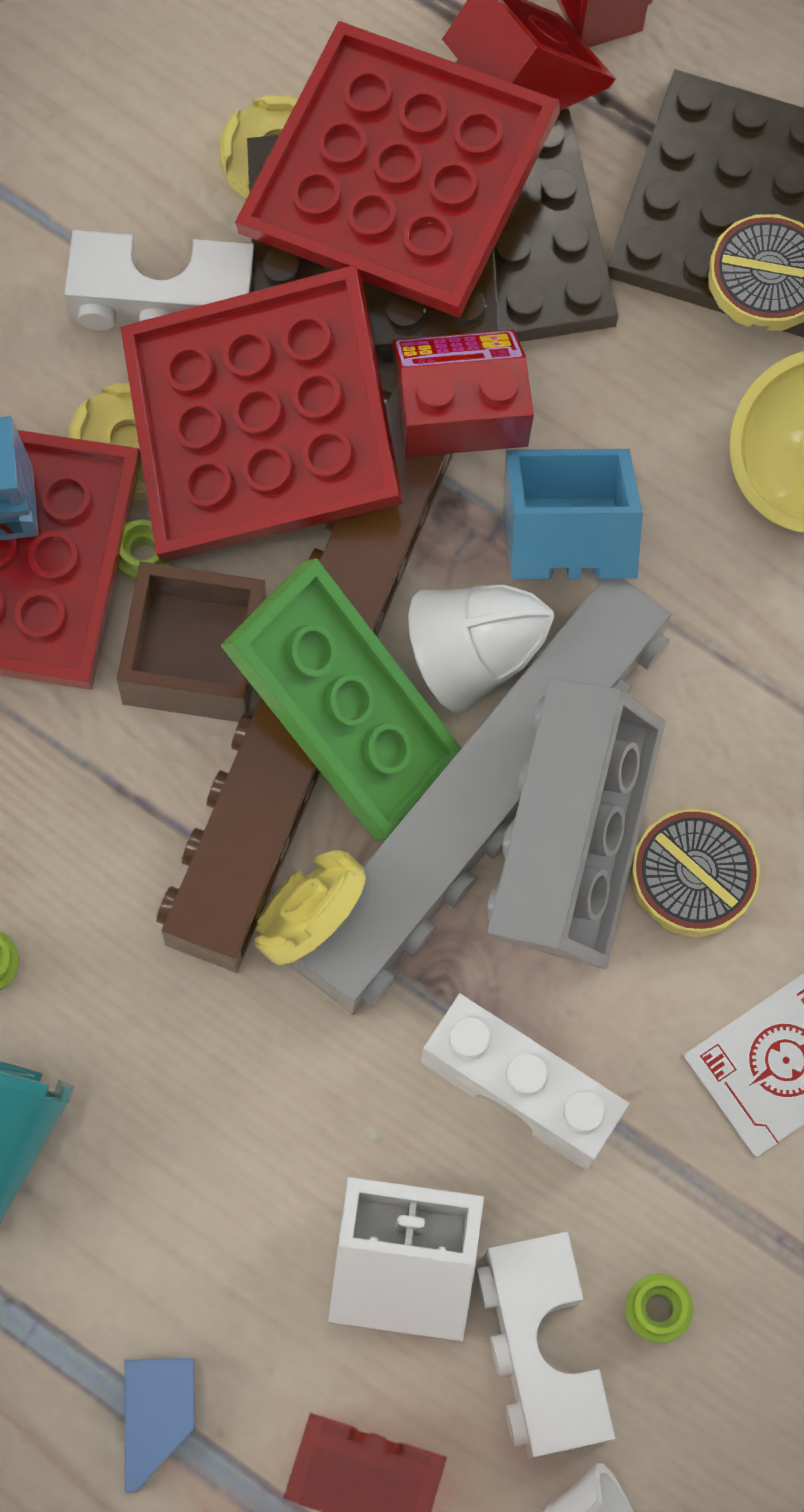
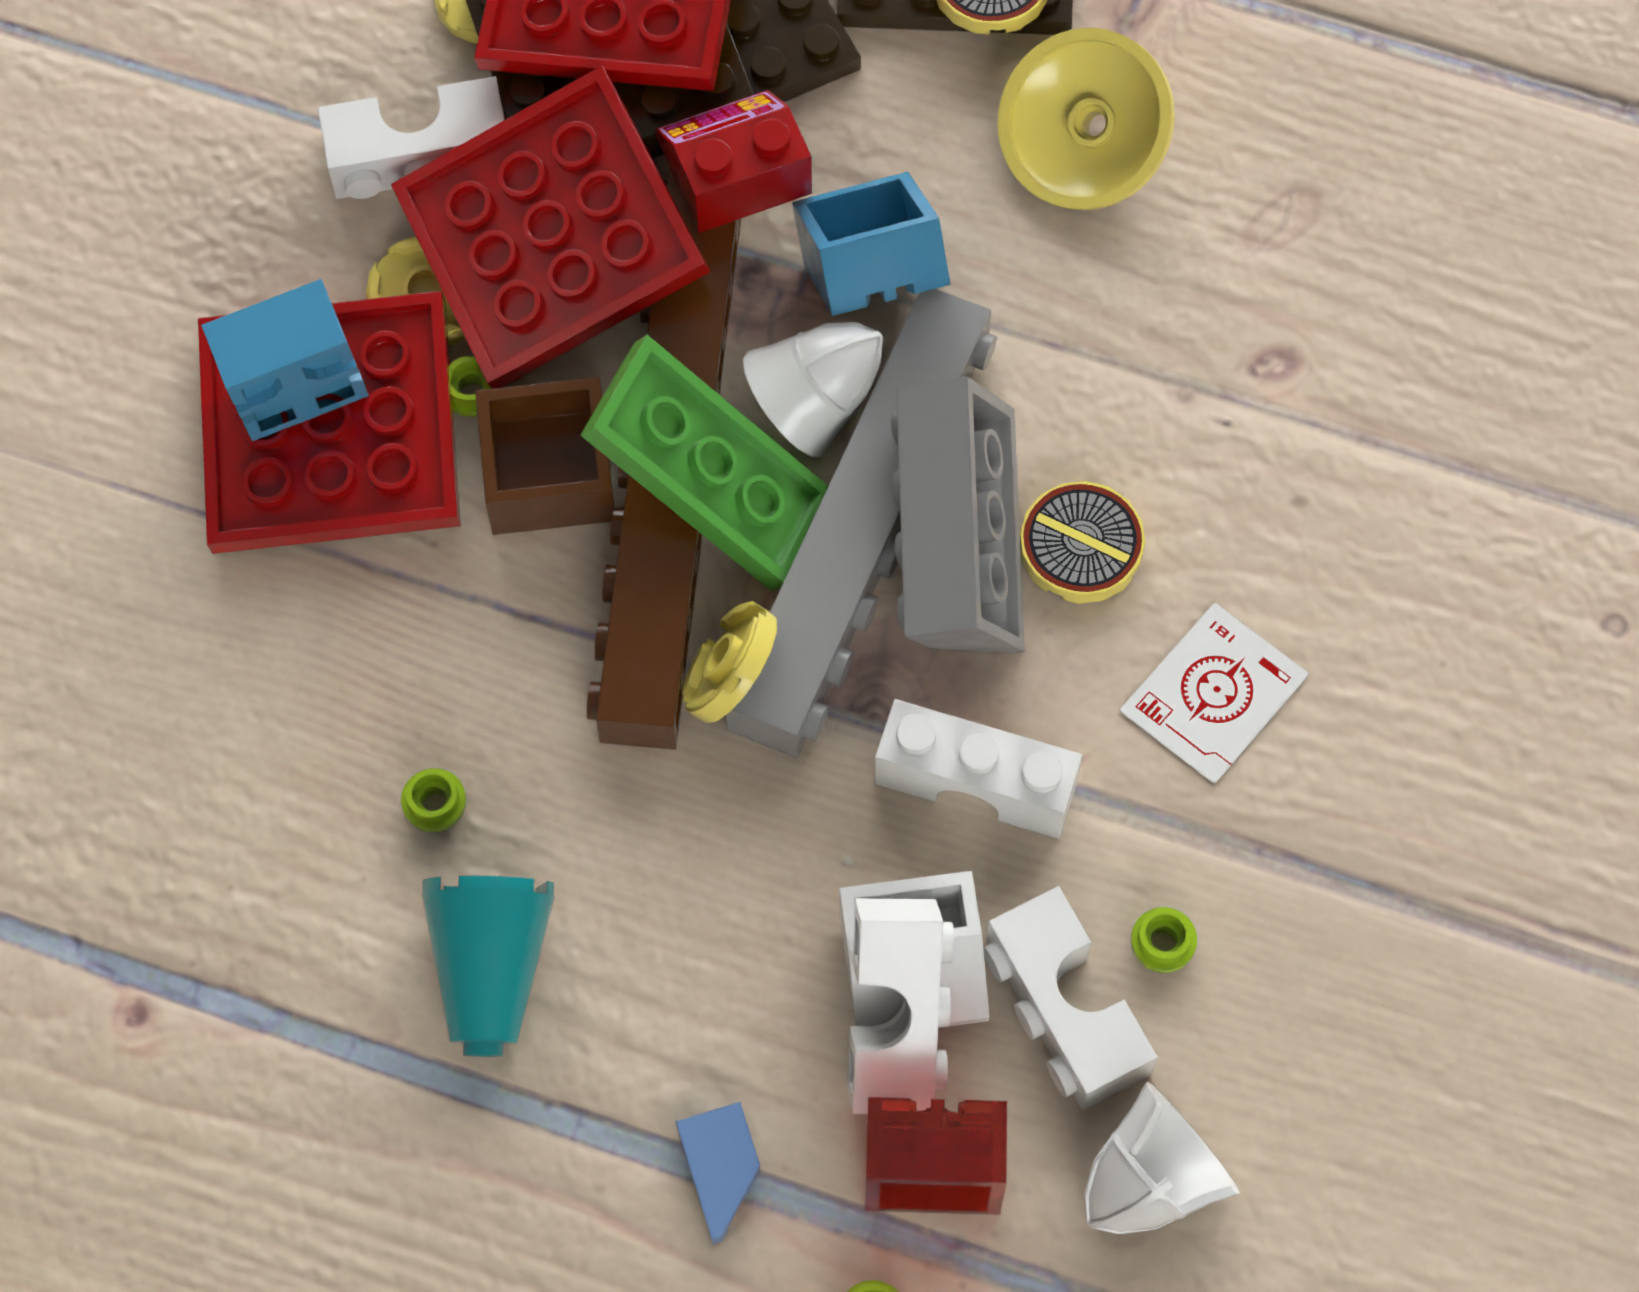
camera: 10 degrees left, 5 degrees down
(356, 1363) = (902, 949): none -> white arch

